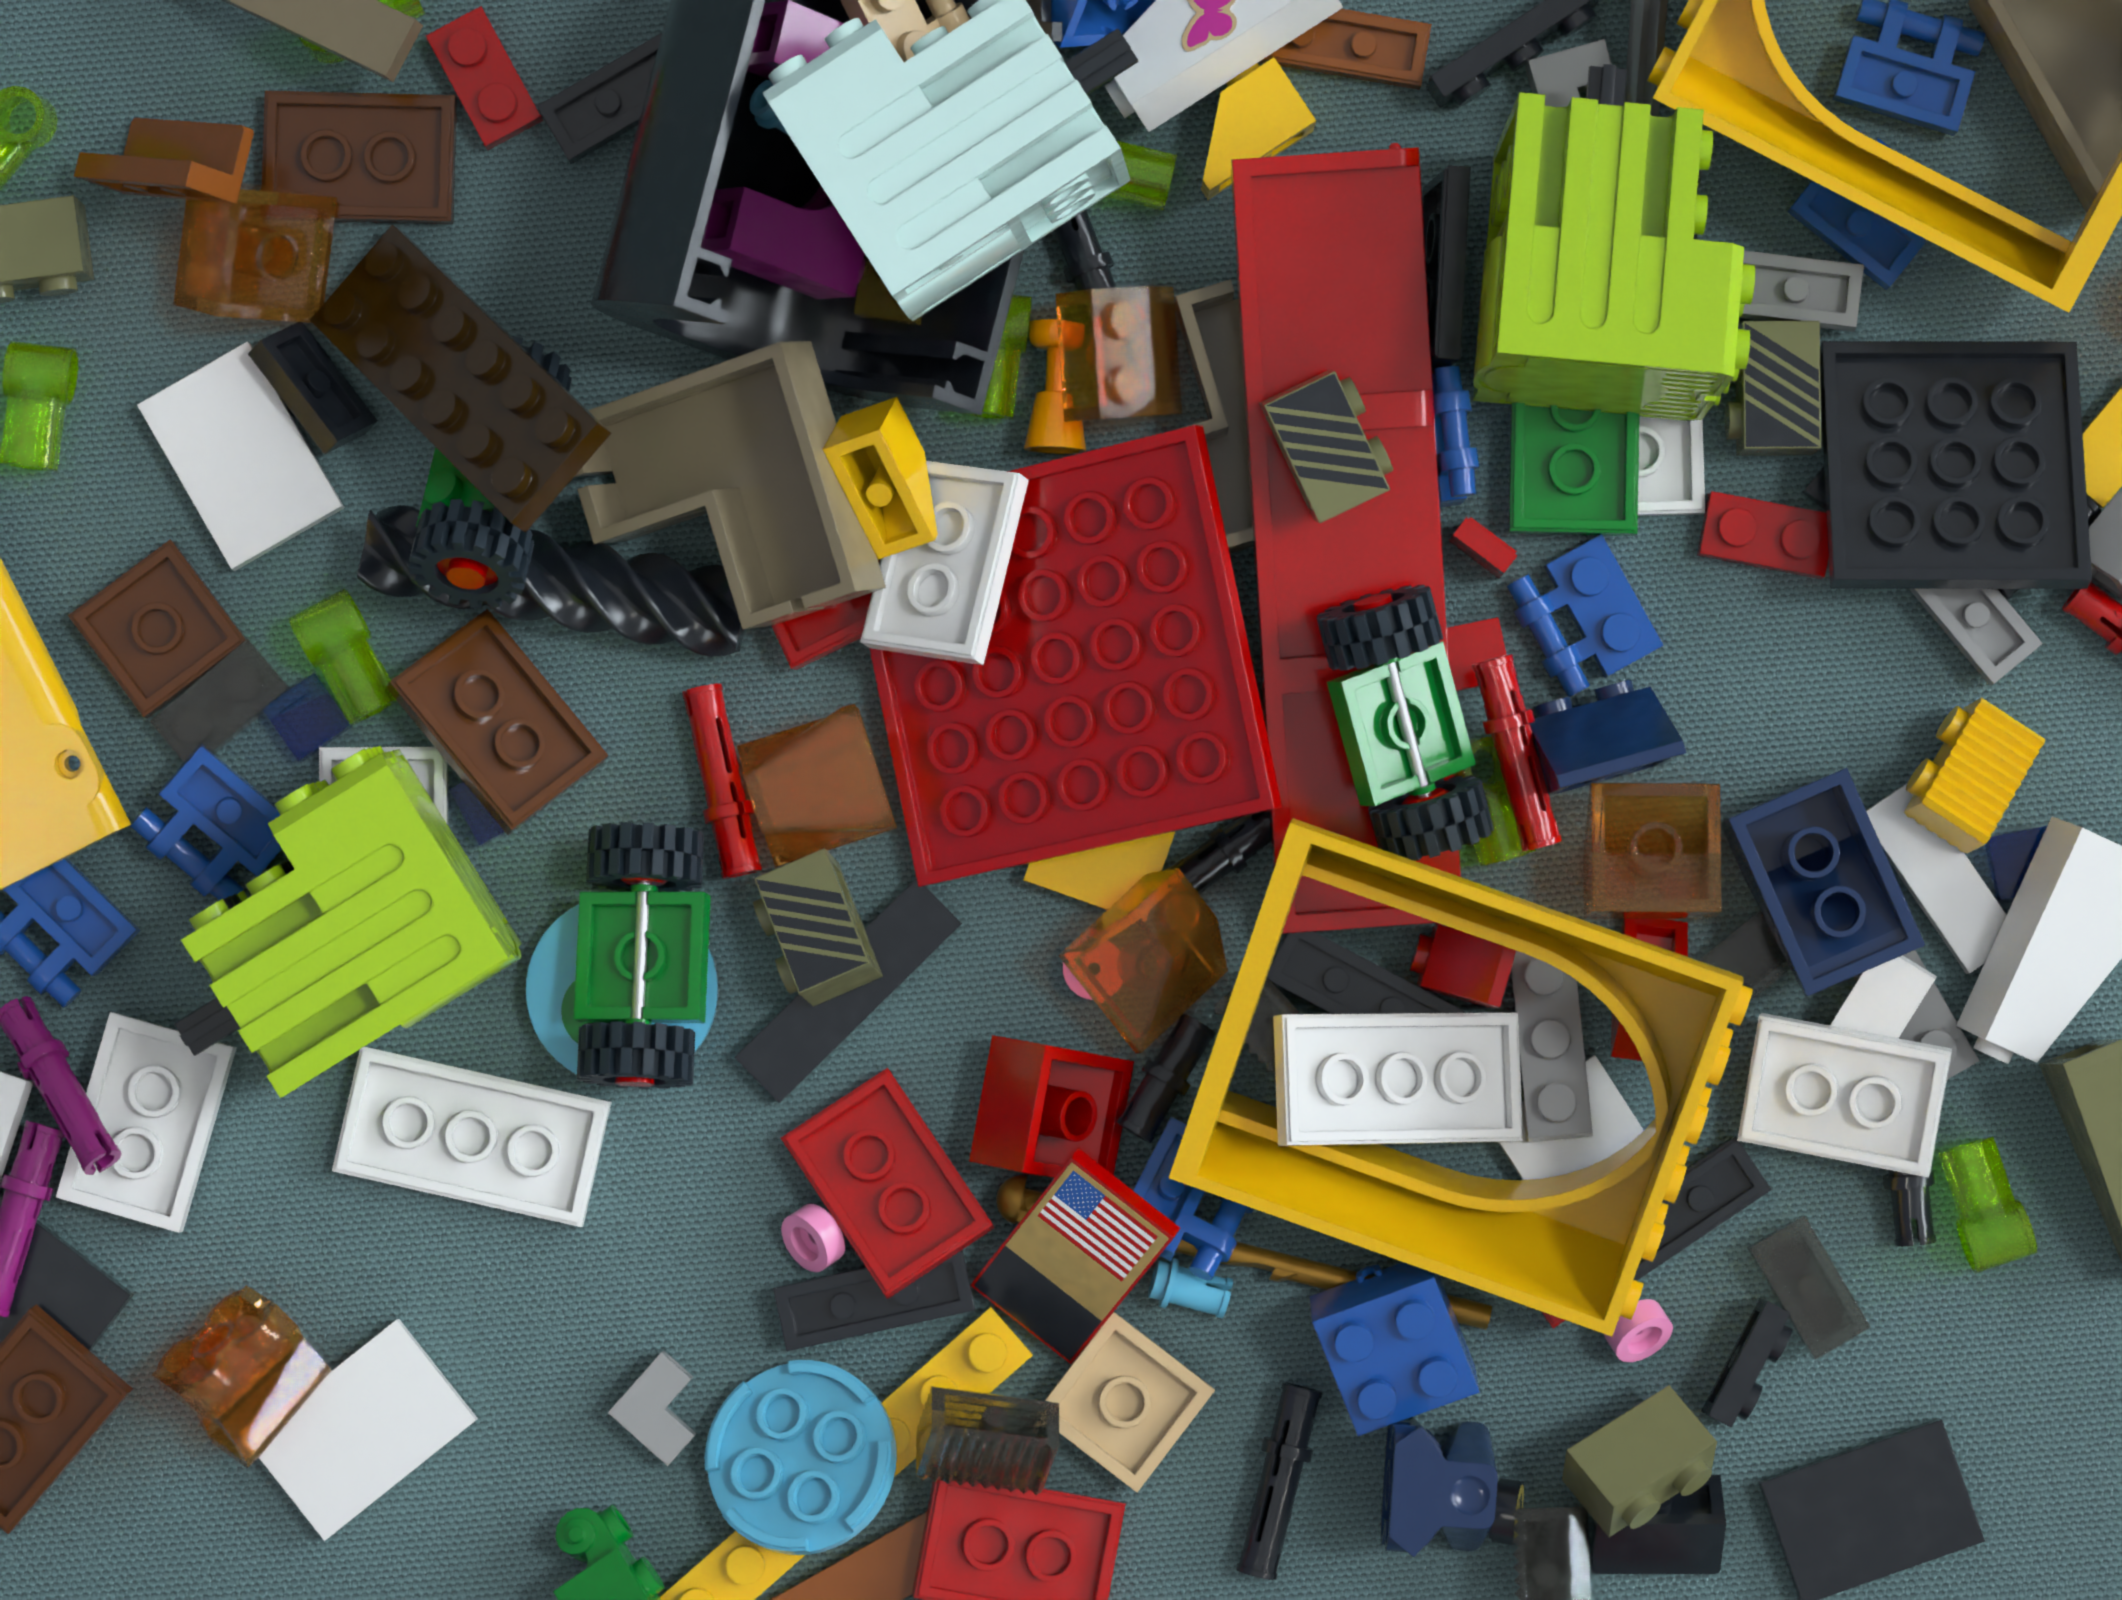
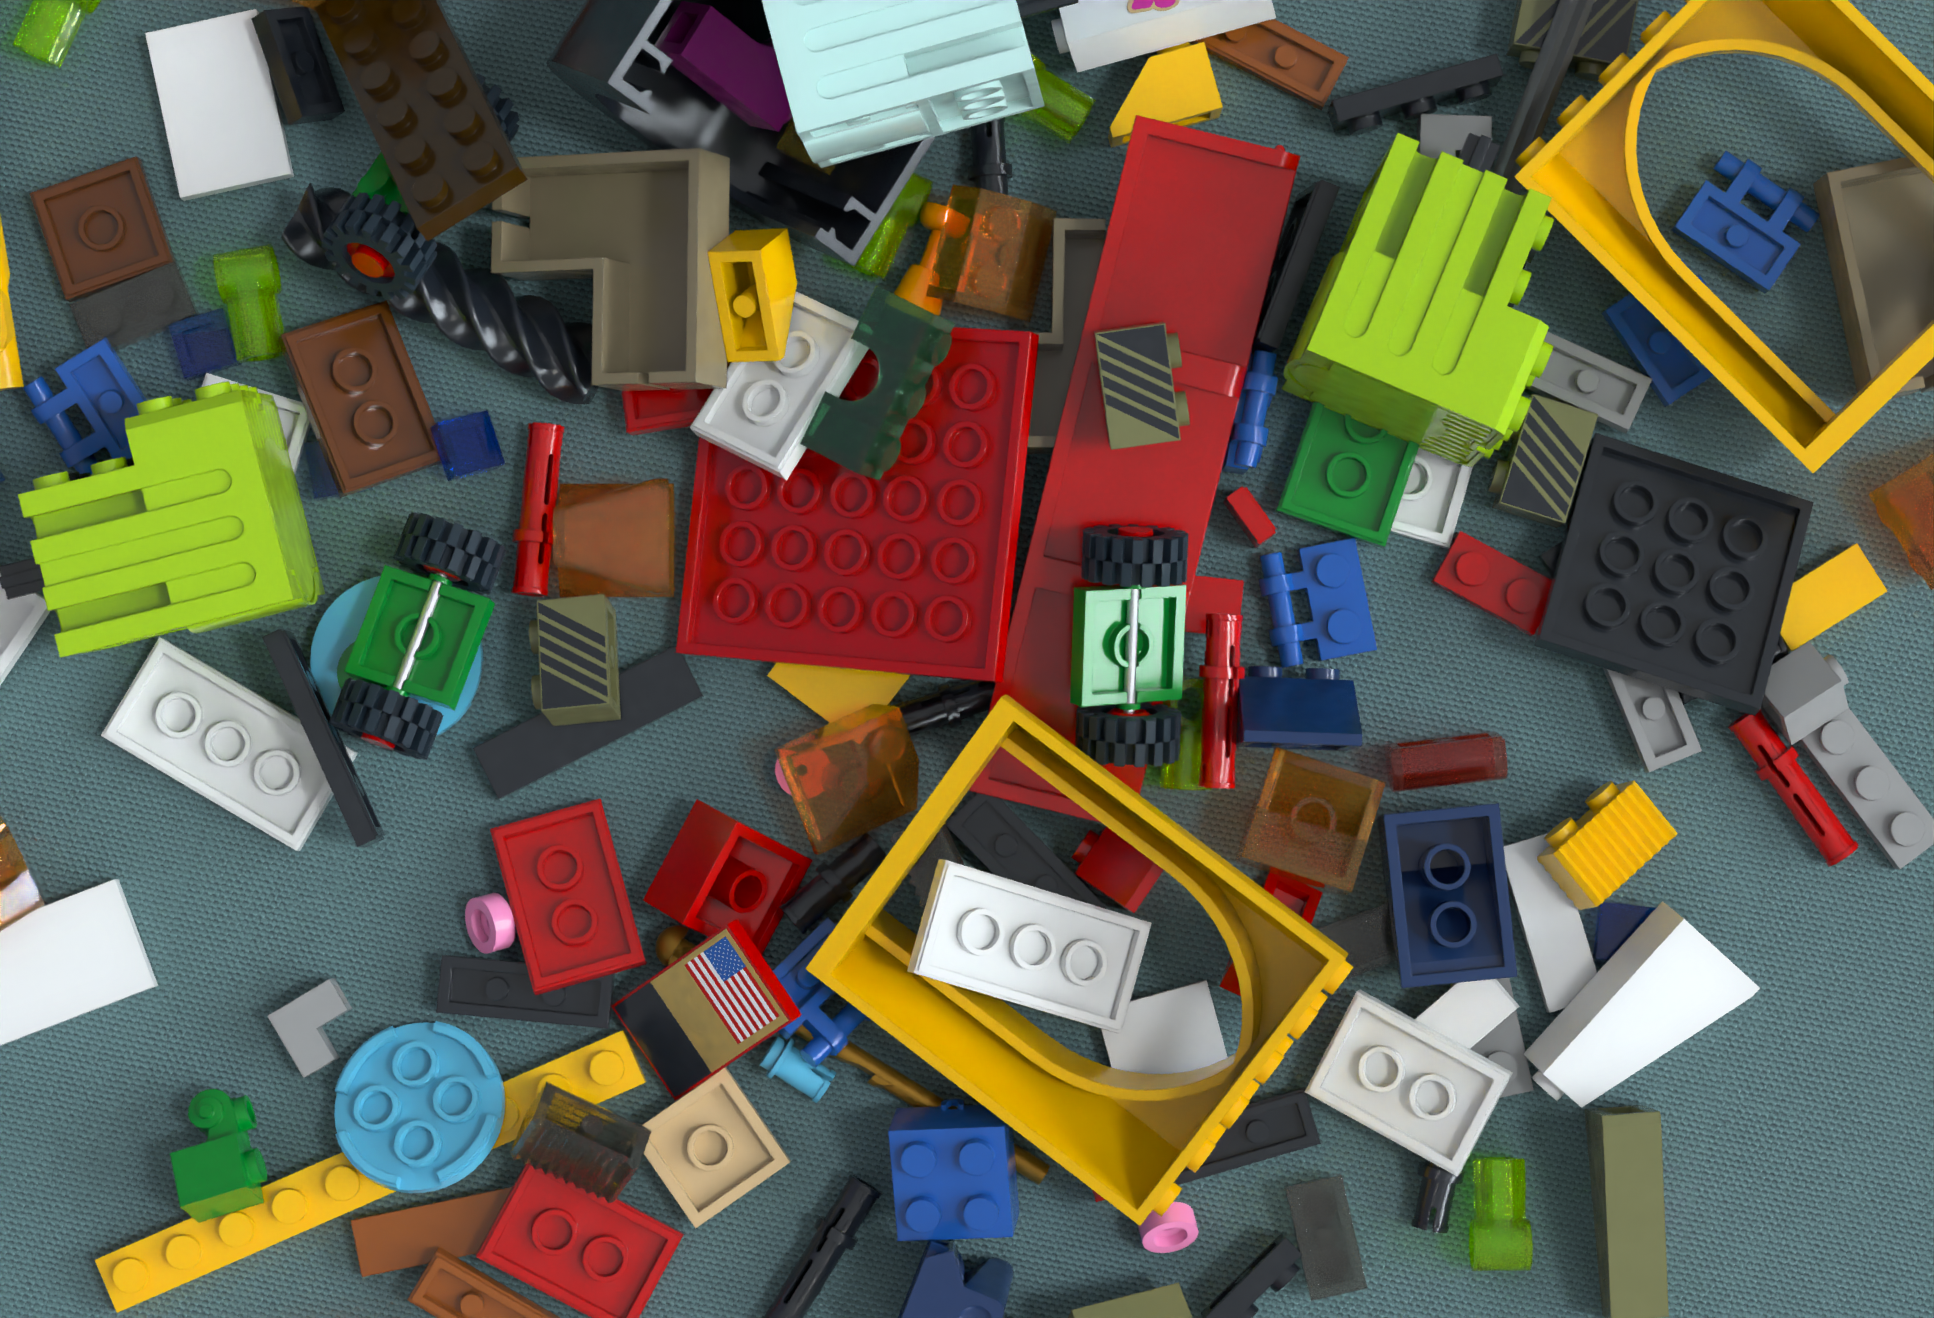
camera: 20 degrees right, 0 degrees up
(574, 1096) = (324, 737): none -> black tile
(625, 736) = (467, 445): none -> clear blue tile
(1067, 481) = (908, 347): none -> clear green arch
(1551, 1051) = (1169, 966): light grey plate -> none
(1774, 741) = (1446, 761): none -> clear red brick

